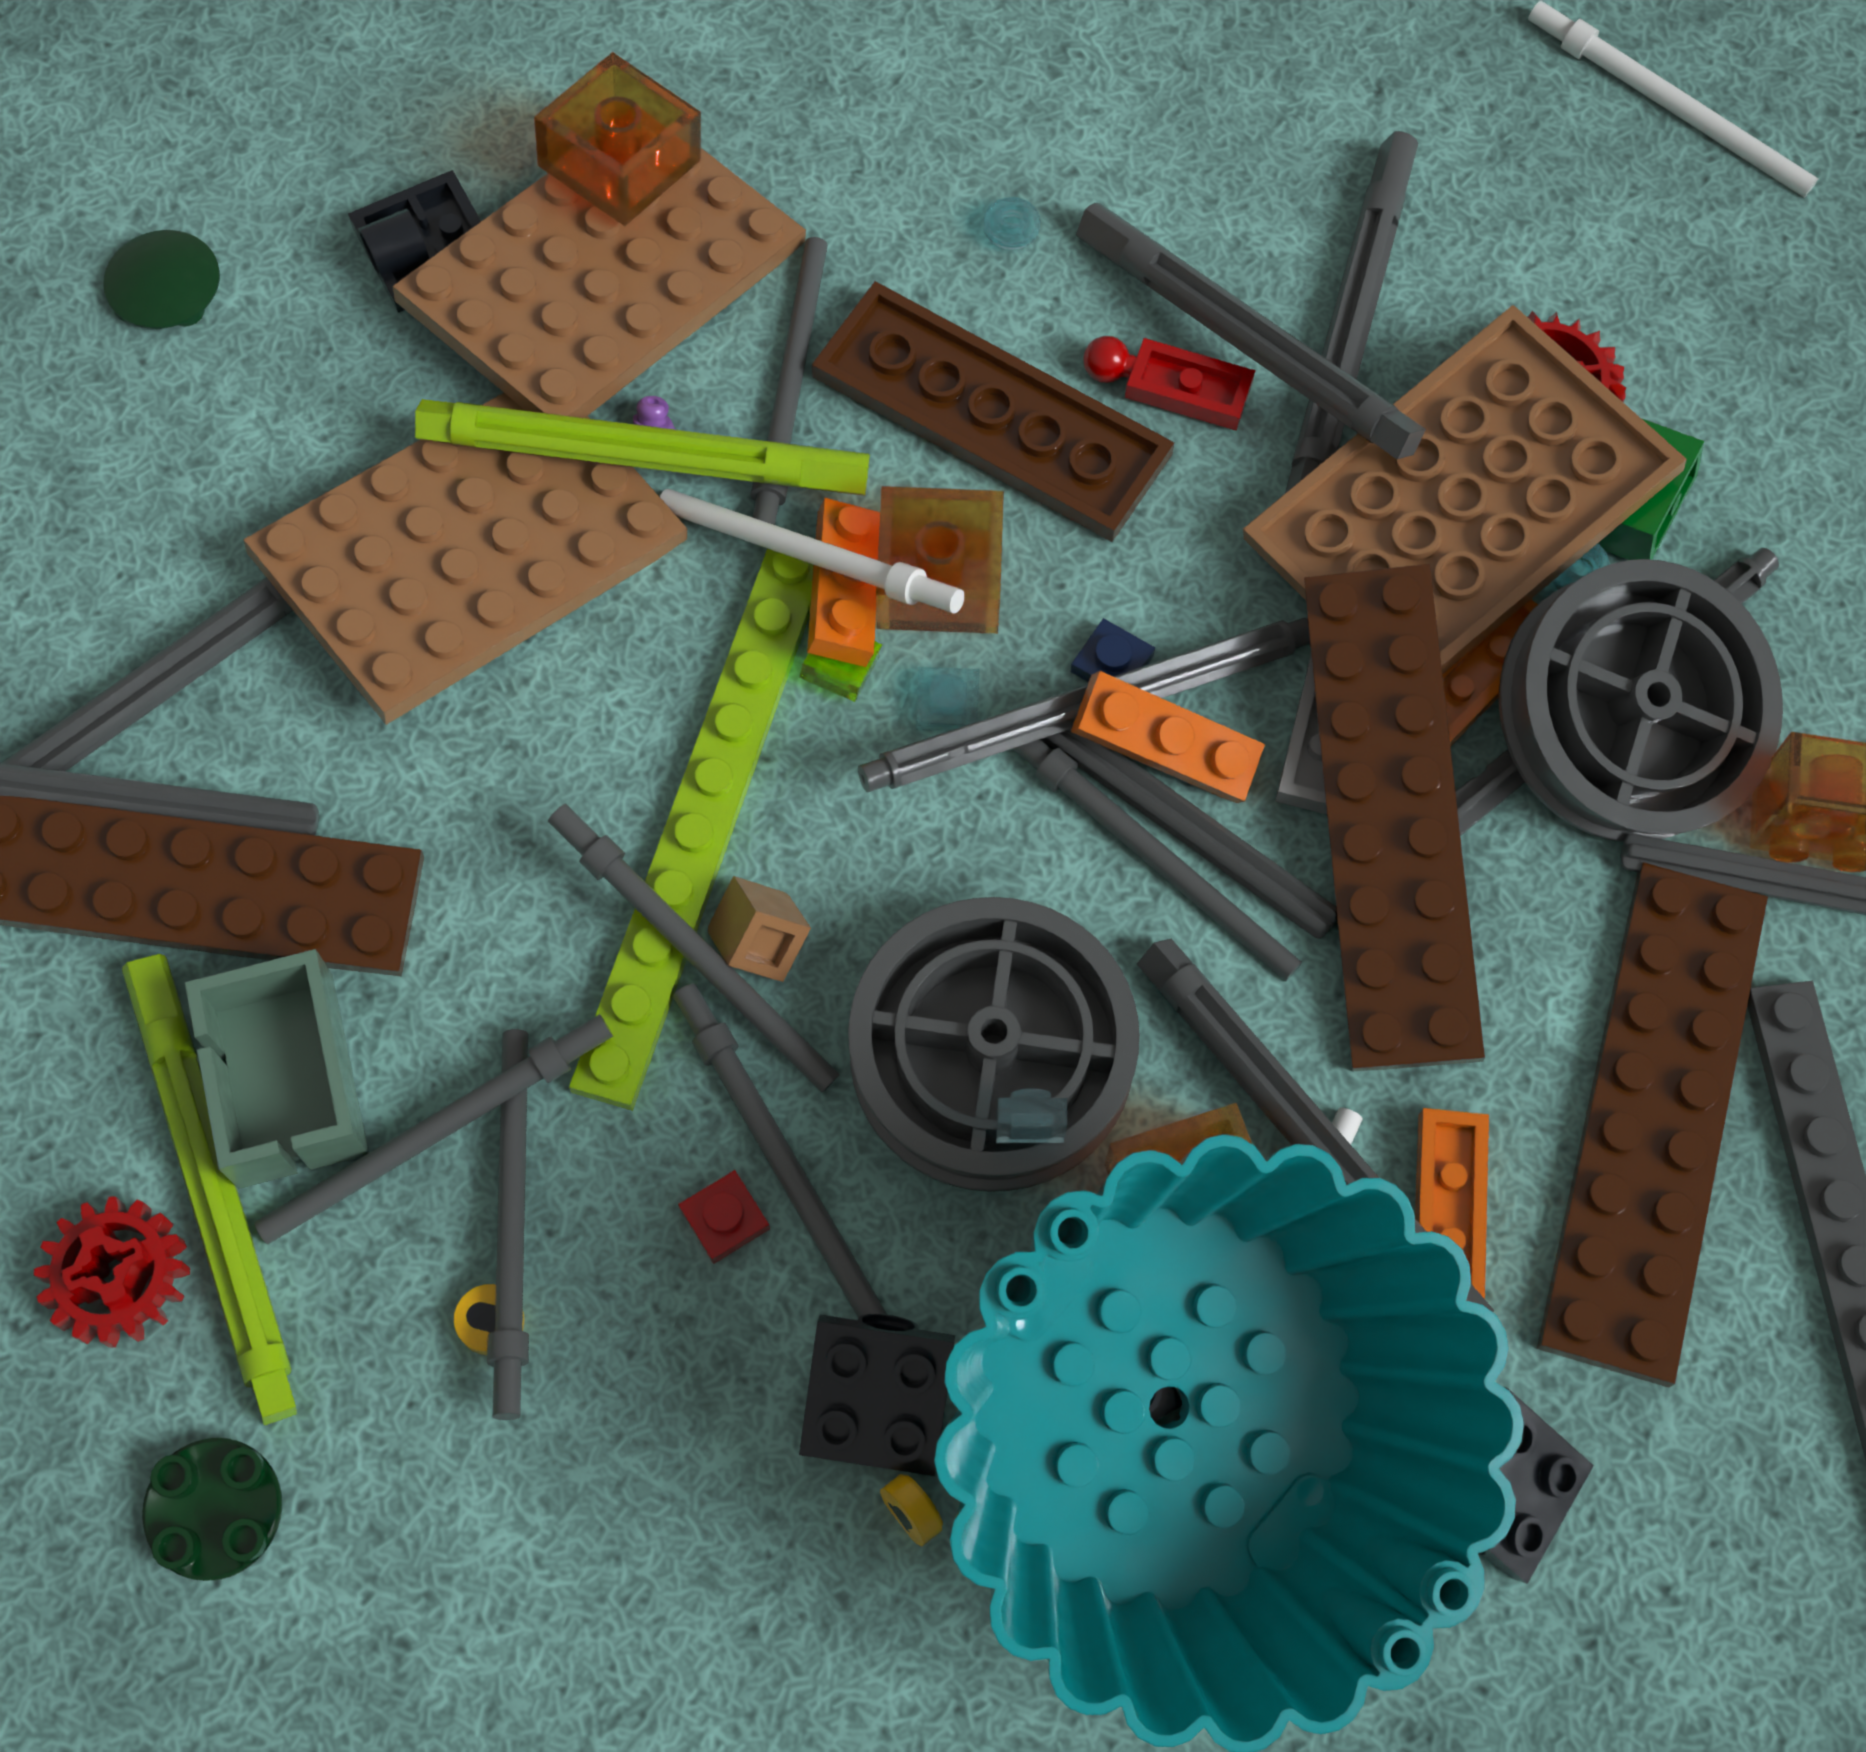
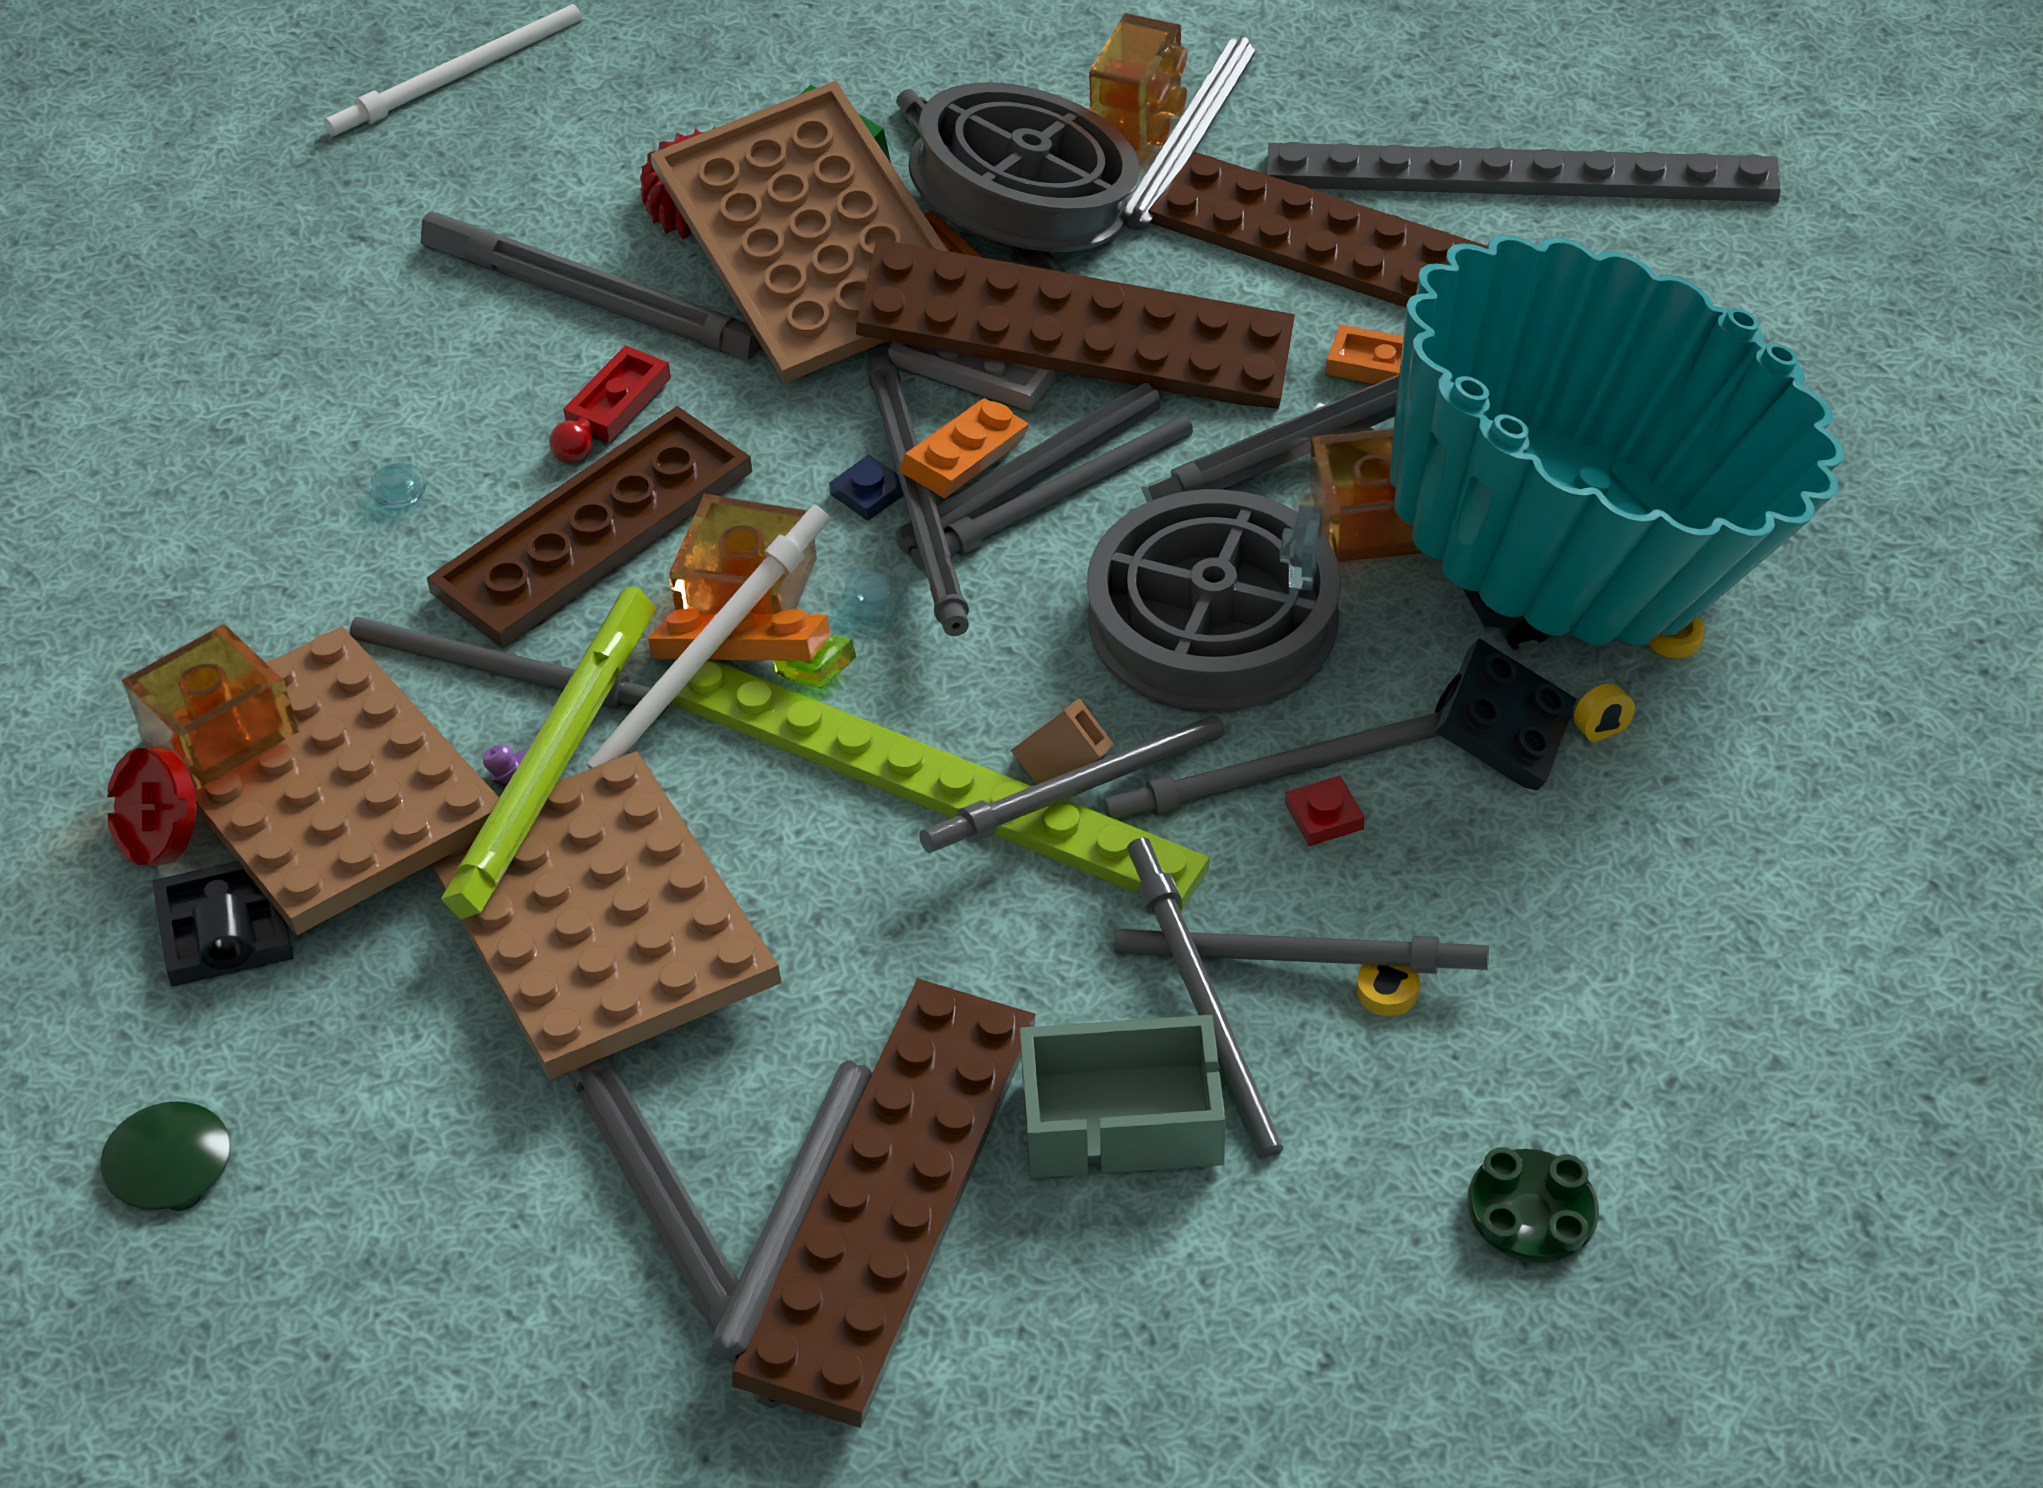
camera: 75 degrees left, 20 degrees down
(82, 1263) = (1273, 1276): red gear -> none
(211, 1194) = (1079, 1203): lime piece -> none
(511, 145) = (151, 806): none -> red tile
(1250, 332) = (587, 333): dark grey piece -> none

